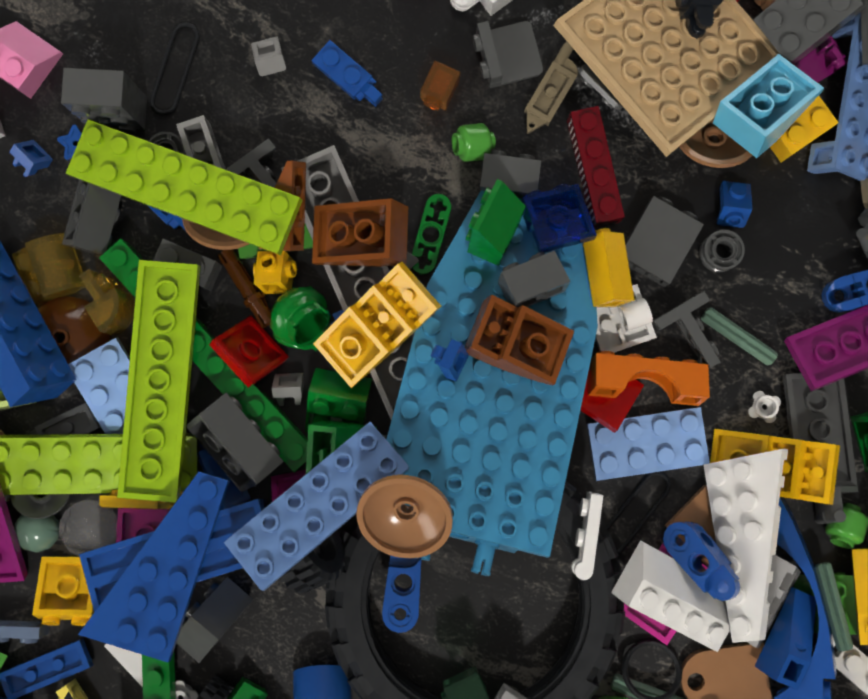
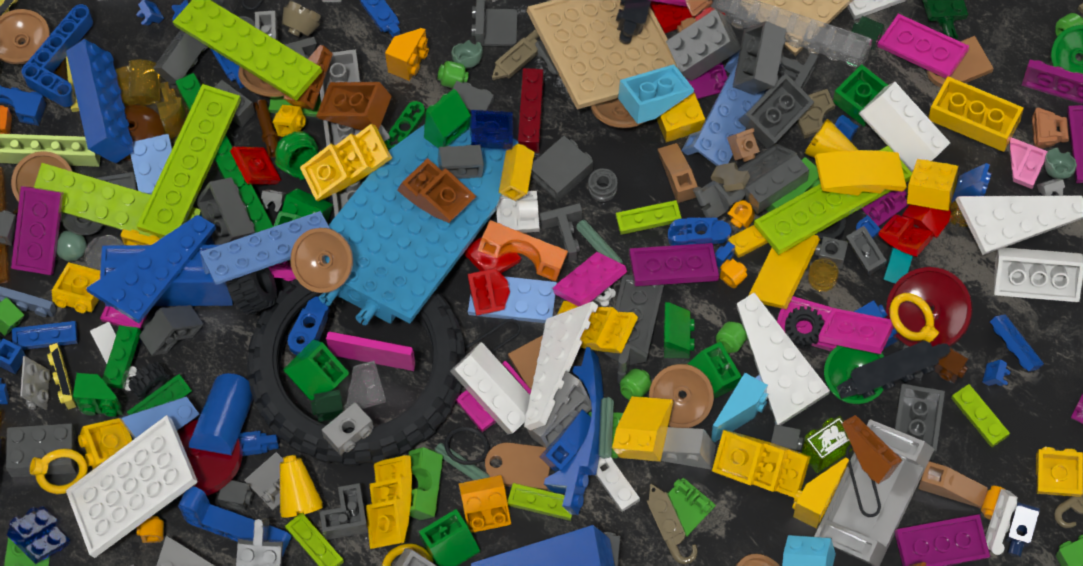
camera: 20 degrees right, 20 degrees down
(241, 116) = (300, 19): none -> dark tan cone
(401, 130) = (406, 53): none -> light orange slope
(436, 651) = (315, 370): none -> green slope
(439, 86) = (441, 35): clear orange brick -> none
(451, 359) = (387, 189): blue tile -> none
(484, 105) = (467, 54): none -> sand green hair
(503, 604) = (371, 350): none -> dark pink tile
(505, 650) = (365, 386): none -> clear wing
(587, 536) = (443, 325): white plate -> none
(621, 454) = (488, 291): none -> red slope
(719, 577) = (519, 366): blue piece -> none
(734, 204) = (621, 158): blue bracket -> none
(748, 397) = (589, 279): none -> dark pink plate
(794, 281) = (647, 217): none -> lime plate
(817, 206) = (678, 172): none -> medium nougat slope

